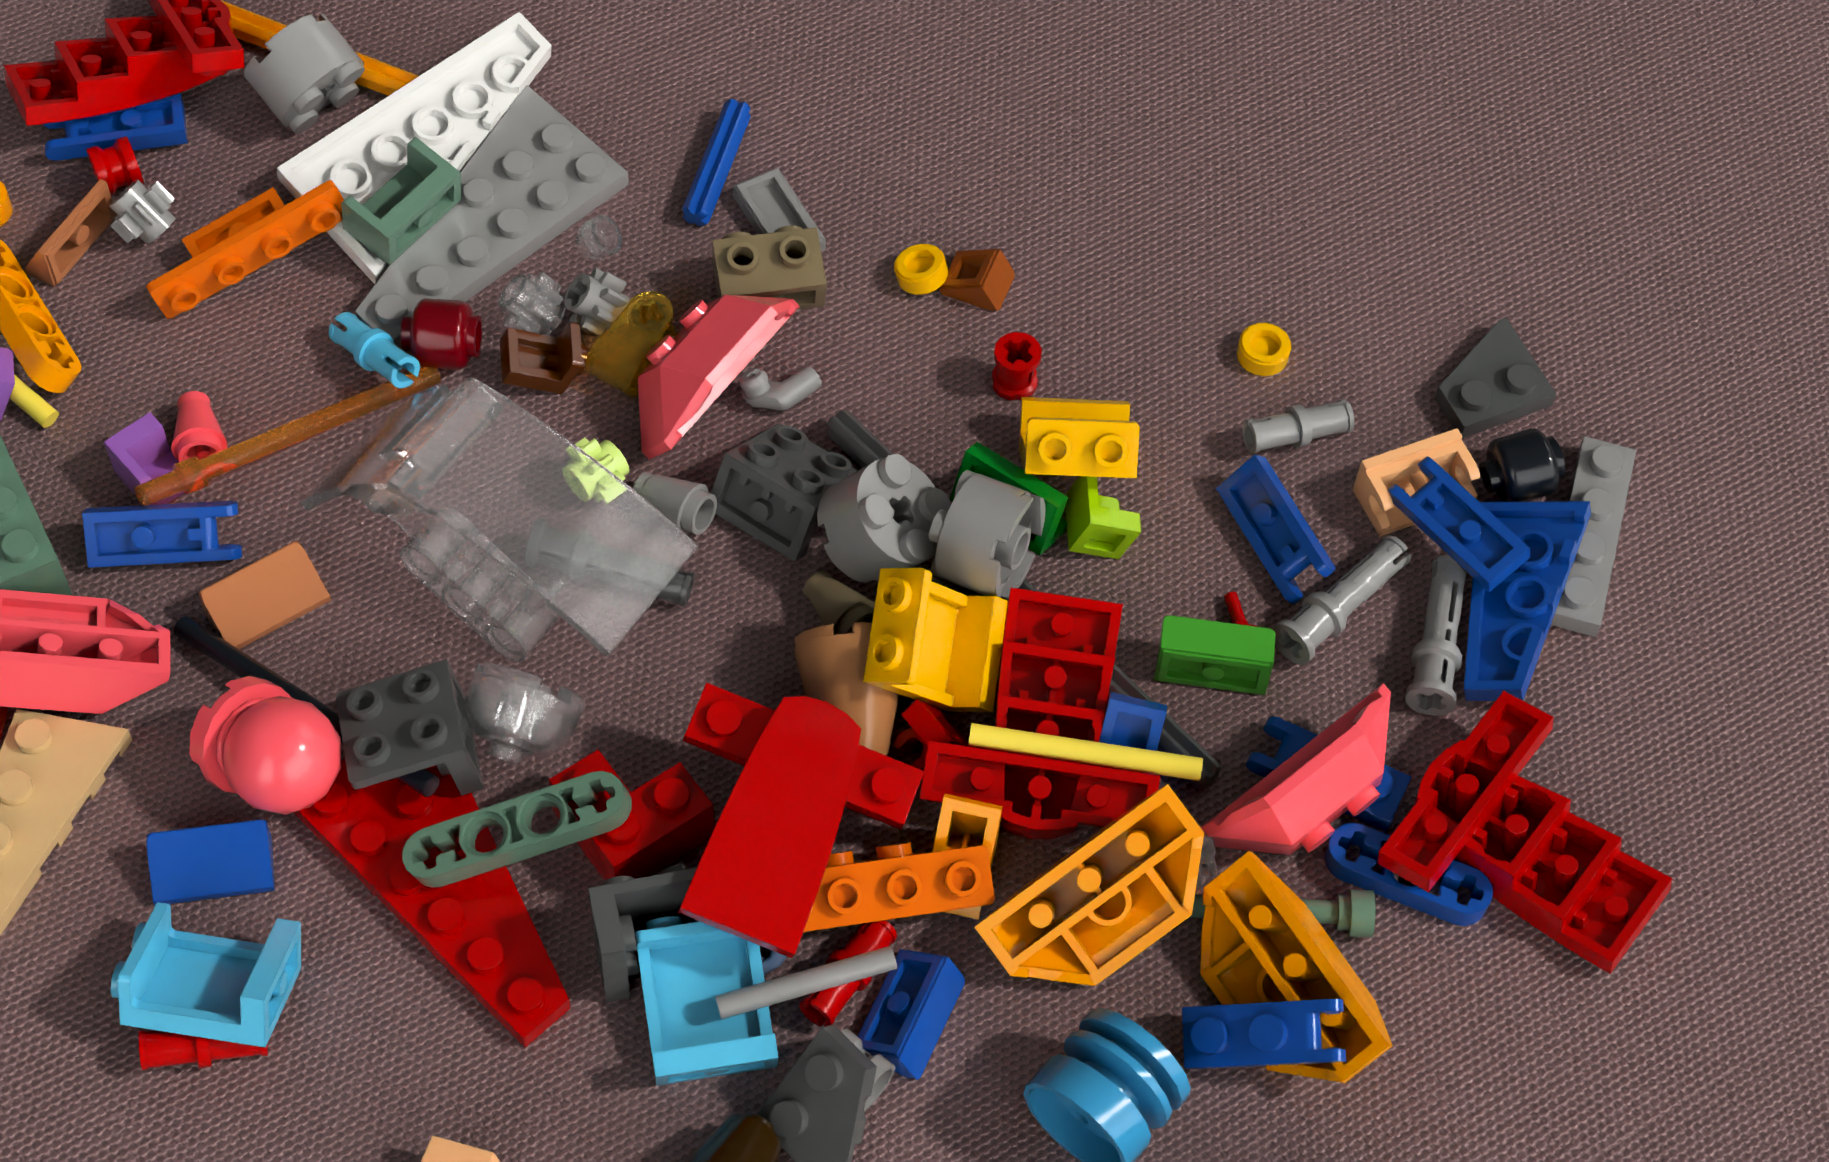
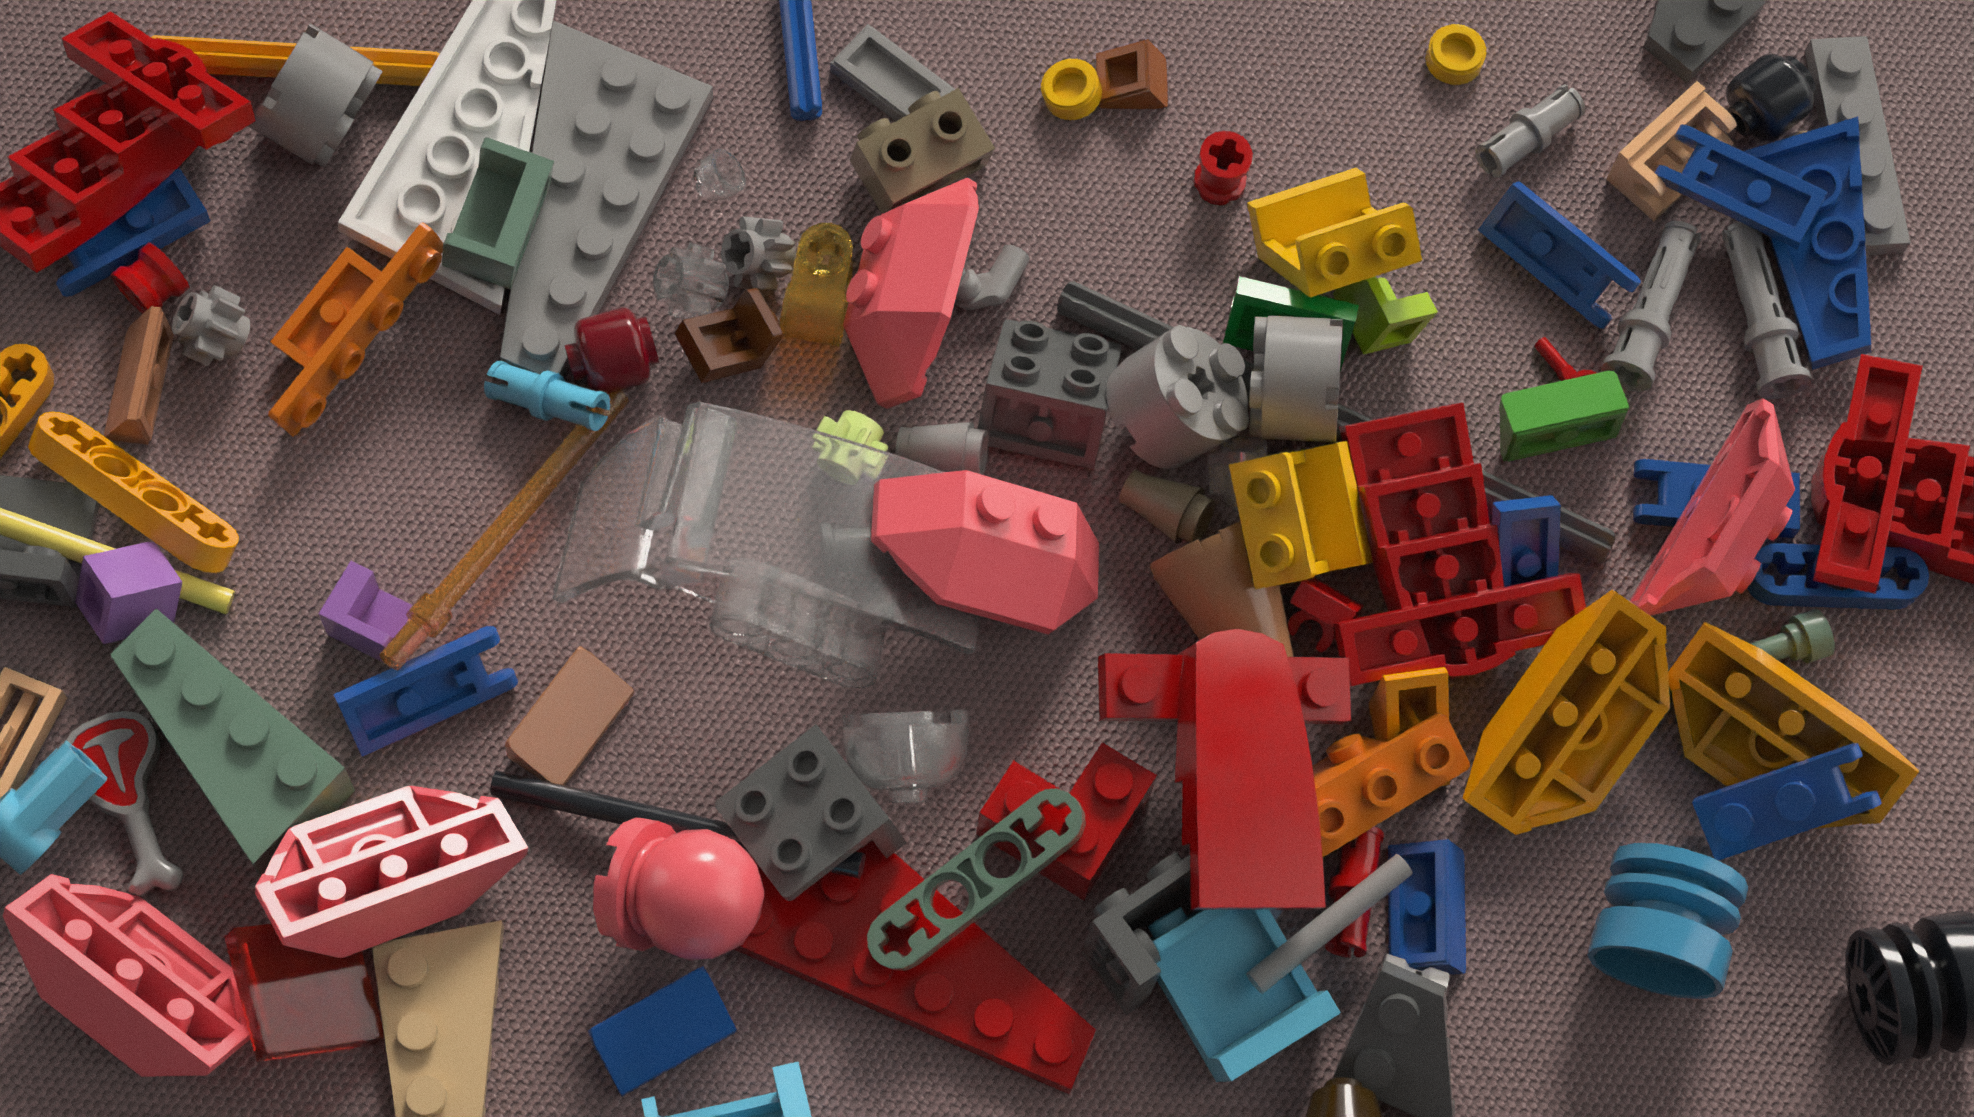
camera: 25 degrees left, 10 degrees up
(196, 428) = (402, 559): coral cone -> none
(665, 578) = (989, 546): none -> coral wedge
(1085, 752) = (1494, 575): light yellow bar -> none

